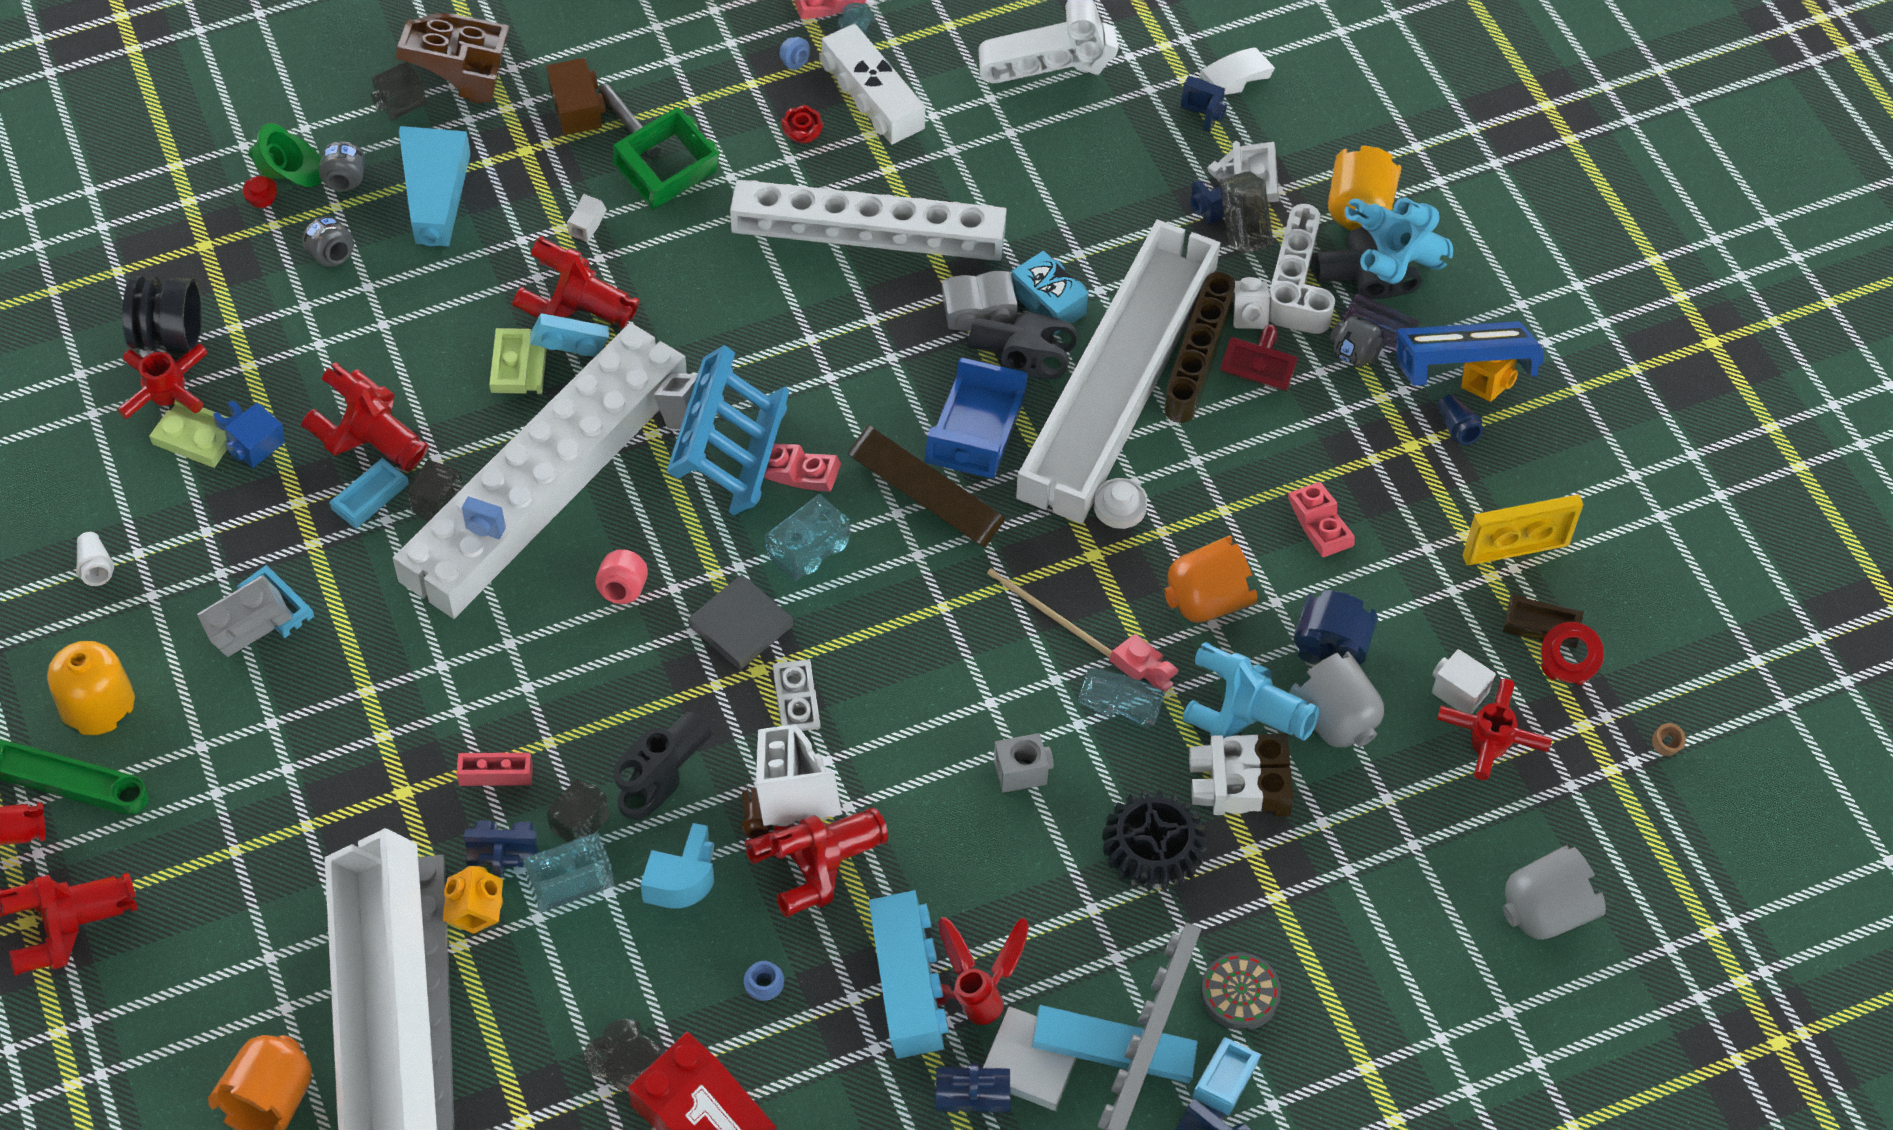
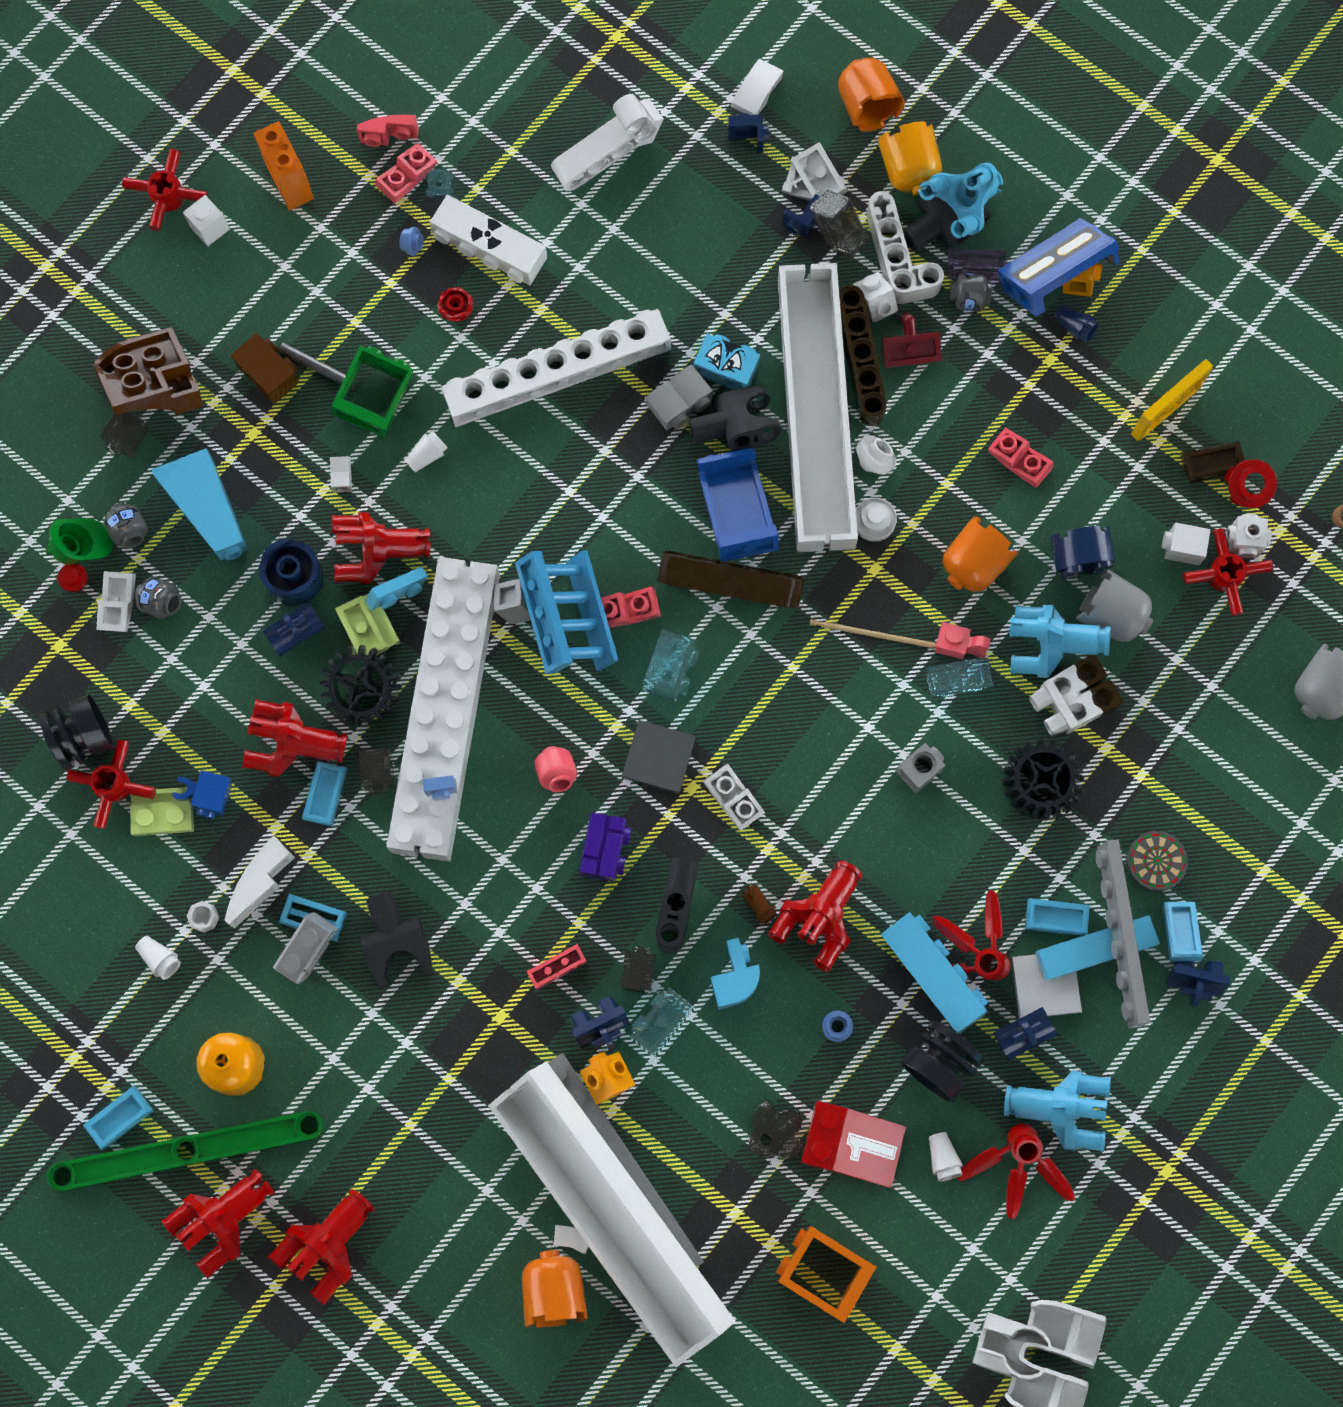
camera: 25 degrees left, 20 degrees up
(165, 544) = (203, 916): none -> white tile
(241, 536) = (257, 881): none -> white slope
(284, 234) = (116, 601): none -> white slope
(319, 1044) = (569, 1237): none -> white piece
(341, 658) = (392, 939): none -> black connector
(441, 327) = (293, 629): none -> dark blue hips
(474, 275) = (293, 588): none -> dark blue brick
(491, 383) = (354, 698): none -> black gear
(623, 675) = (604, 846): none -> dark purple brick
(685, 235) = (426, 451): none -> white cone
(792, 778) = (781, 874): white wedge -> none
(864, 1062) = (942, 1061): none -> black wheel
(1087, 992) = (1057, 917): none -> medium azure tile
(1158, 442) = (875, 455): none -> white plate
(1351, 116) = (869, 94): none -> orange cylinder
(1539, 704) = (1248, 536): none -> white brick

